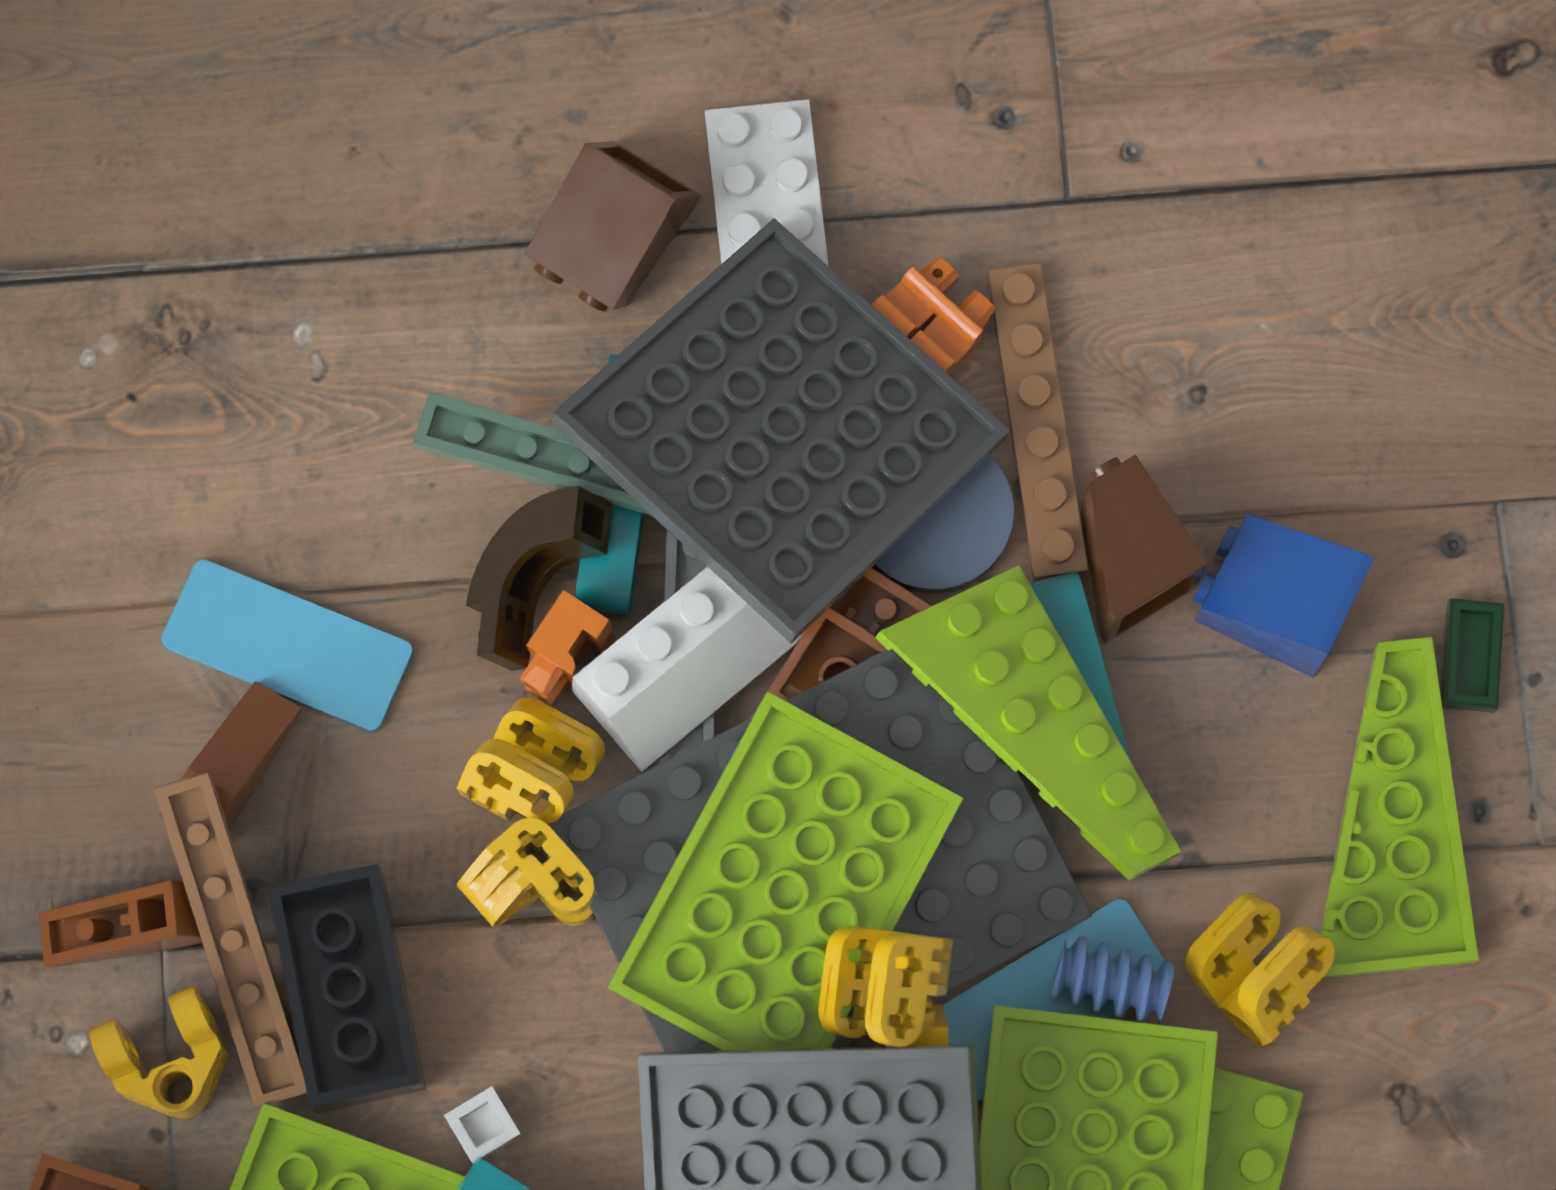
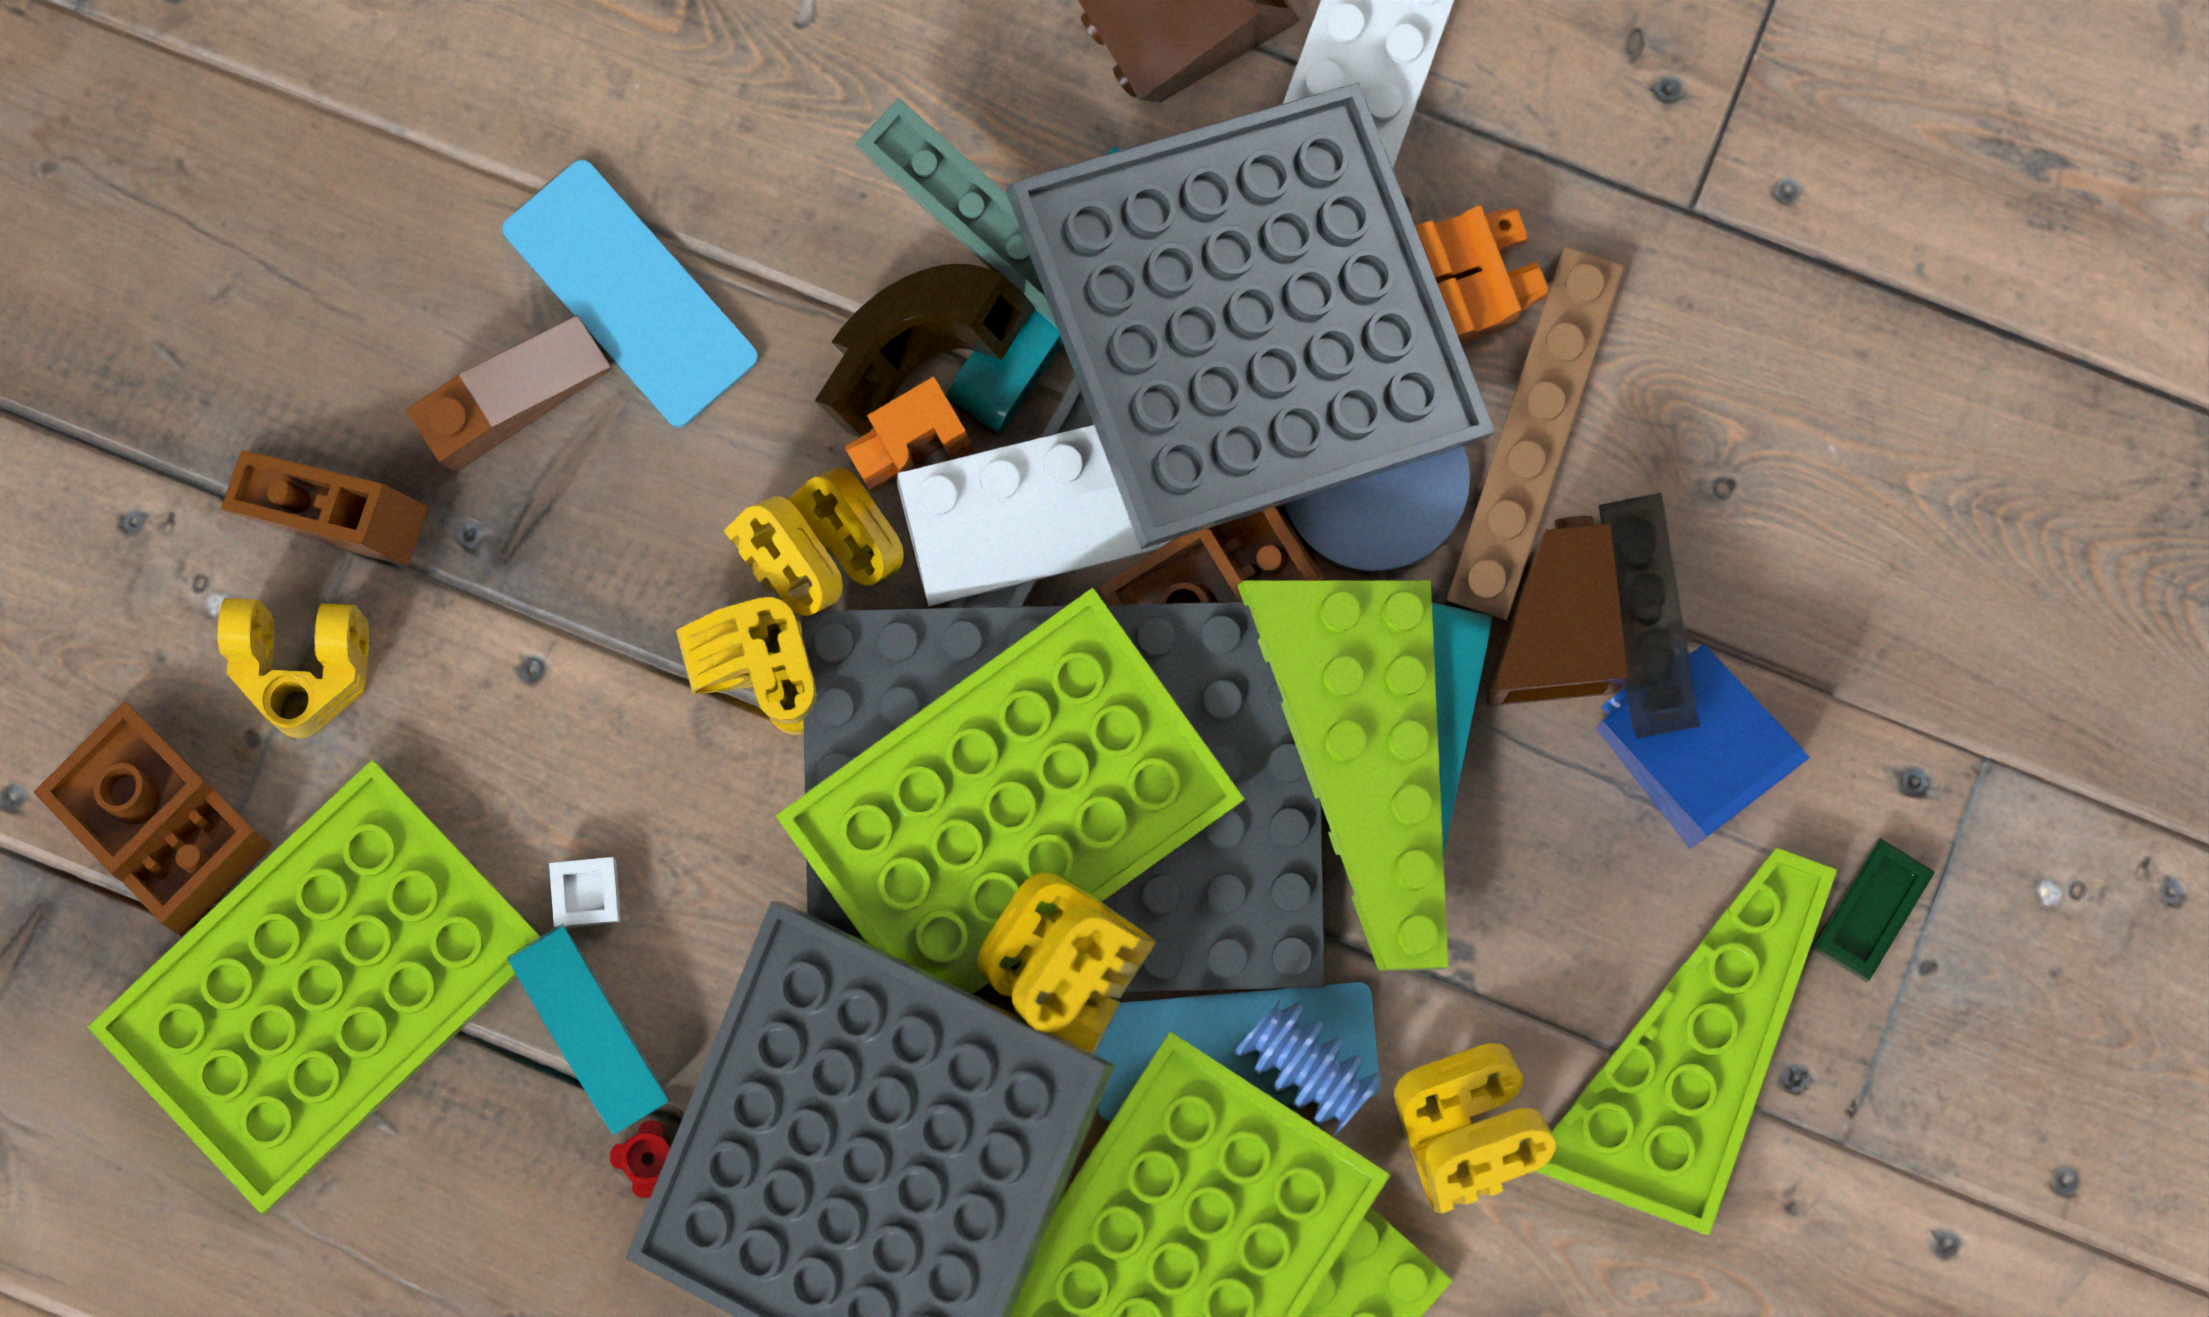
camera: 30 degrees right, 5 degrees up
(232, 938) = (419, 574): medium nougat plate -> none
(346, 988) = (512, 683): black brick -> none
(1231, 554) = (1652, 617): none -> clear smoke plate

